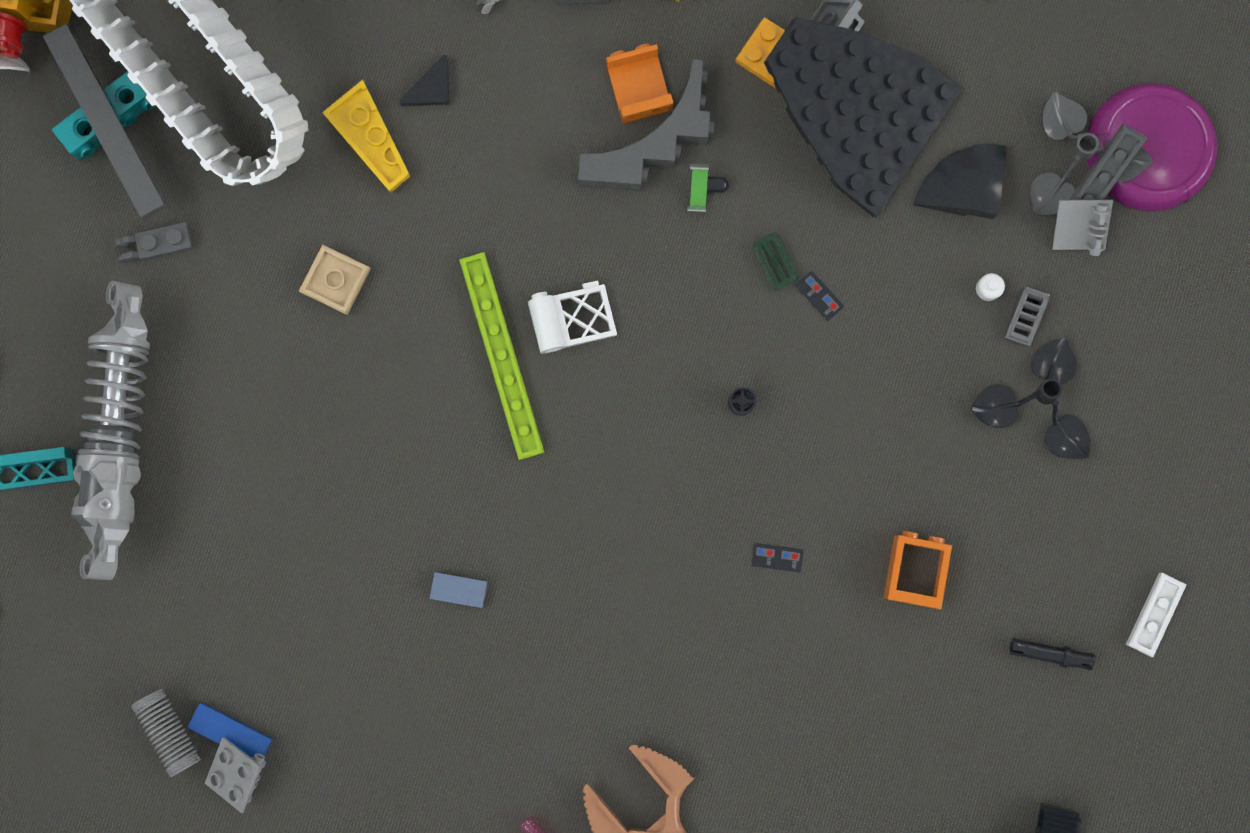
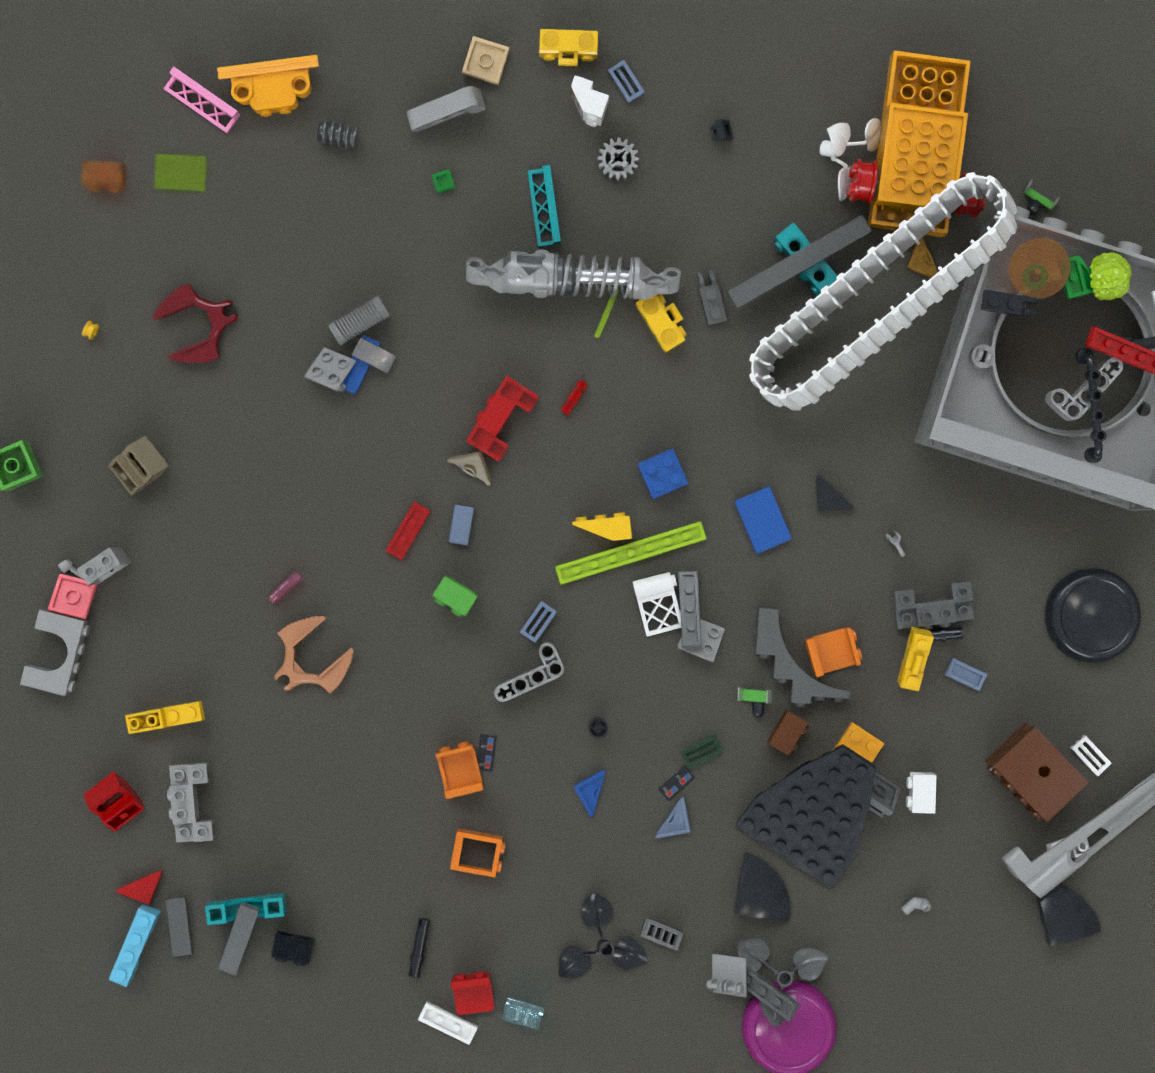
camera: 90 degrees right, 5 degrees up
(173, 387) = (605, 316): none -> lime piece
(183, 313) = (660, 324): none -> yellow piece
(216, 712) = (374, 355): none -> flat silver slope
(285, 431) = (574, 397): none -> red axle
(308, 542) = (496, 414): none -> red bracket
(334, 279) = (685, 430): tan plate -> none
(364, 130) = (794, 451): yellow wing -> none
(374, 573) = (473, 465): none -> dark tan tile
(392, 310) = (662, 473): none -> blue brick
(459, 176) = (762, 520): none -> blue tile
(466, 380) = (611, 528): none -> yellow slope
(466, 665) = (408, 530): none -> red tile
(555, 598) = (455, 595): none -> bright green brick
(579, 274) = (689, 609): none -> tile
(614, 496) = (547, 608): none -> sand blue tile
(620, 260) = (711, 638): none -> light grey hinge
(670, 498) = (528, 676): none -> light grey beam
(749, 144) = (788, 732): none -> reddish brown brick
(801, 595) = (459, 770): none -> orange panel
(830, 414) = (589, 790): none -> blue tile
(872, 296) = (676, 822): none -> sand blue tile
(990, 287) = (683, 907): white piece -> none
(1113, 579) = (472, 992): none -> red bracket
(1141, 509) = (522, 1013): none -> clear light blue brick

